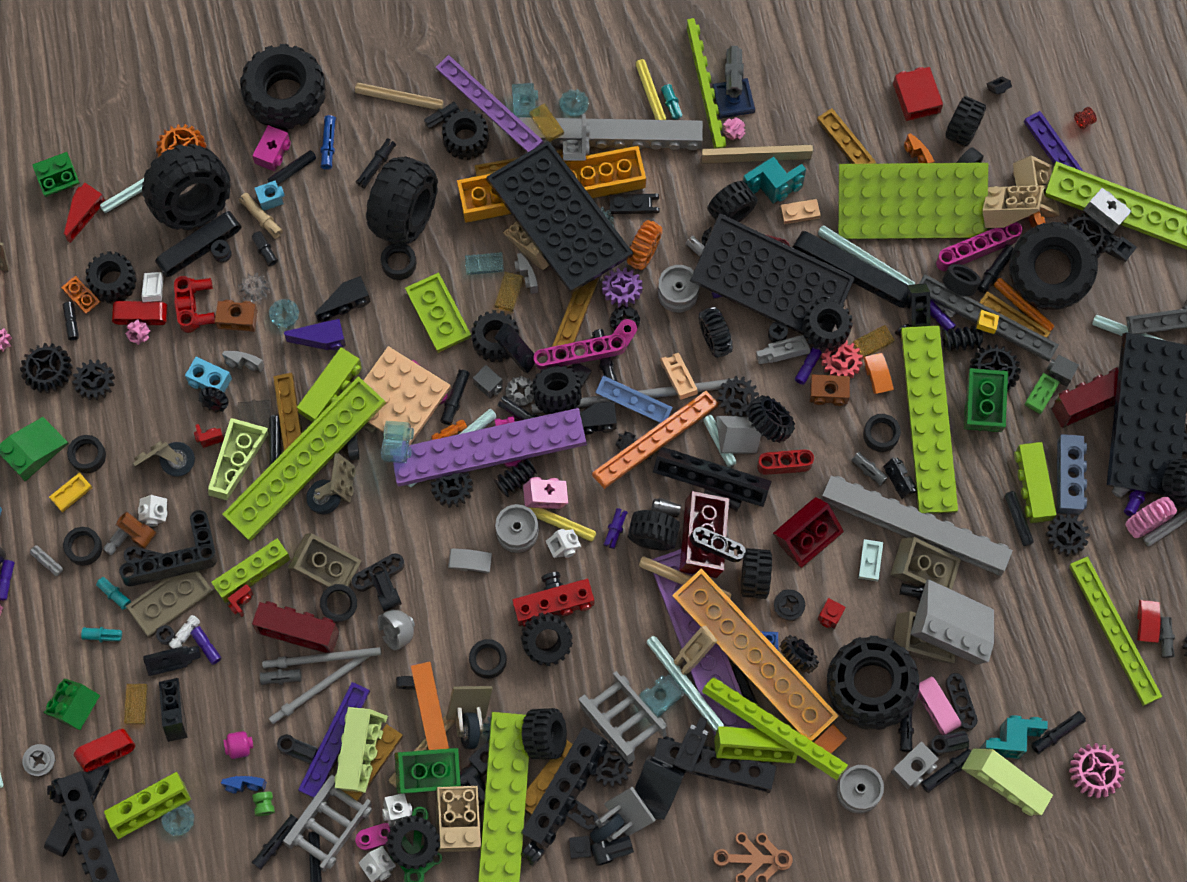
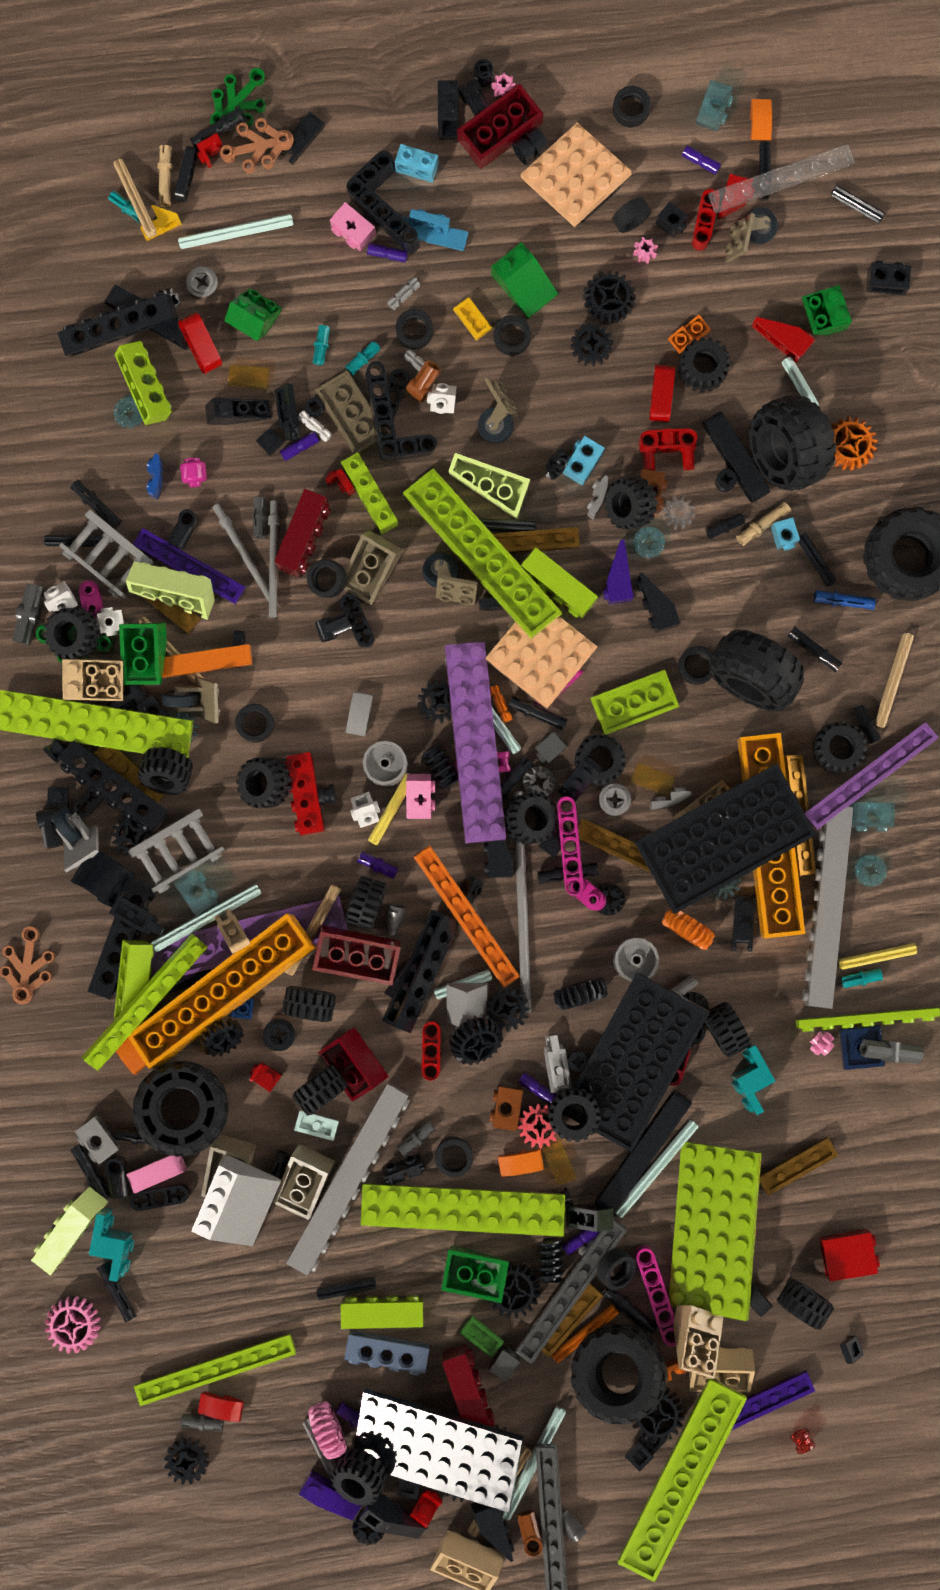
camera: 100 degrees right, 15 degrees up
(27, 127) = (889, 283): none -> black brick
(70, 318) = (660, 323): black piece -> none
(137, 332) = (640, 390): bright pink gear -> none
(152, 287) = (689, 407): white tile -> none
(202, 675) = (270, 441): none -> black plate
(210, 437) = (518, 461): red bracket -> none
(252, 340) = (641, 498): none -> black tyre
(263, 803) = (133, 494): bright green wheel -> none
(271, 148) = (851, 540): dark pink brick -> none
(396, 441) = (486, 647): clear light blue brick -> none
(397, 628) = (293, 635): light grey cylinder -> none
(484, 263) = (687, 756): clear light blue tile -> none
(537, 316) = (621, 792): none -> light grey gear
(546, 122) = (843, 836): clear yellow tile -> none
(577, 150) = (807, 865): light grey bracket -> none
(620, 285) = (645, 907): medium lavender gear -> none
(633, 399) = (514, 898): medium blue plate -> none
(679, 376) = (536, 949): light nougat plate -> none
(729, 555) = (339, 951): beam -> none
(749, 154) = (789, 1064): tan tile -> none
(800, 211) = (718, 1104): light nougat plate -> none
(837, 554) = (320, 1090): none -> black tyre
(851, 797) = (68, 1085): light grey wheel -> none
(917, 148) = (782, 1243): orange slope -> none
(987, 321) = (561, 1290): yellow plate -> none
(1061, 540) = (313, 1336): black gear -> none
(1107, 210) = (680, 1446): brick -> none

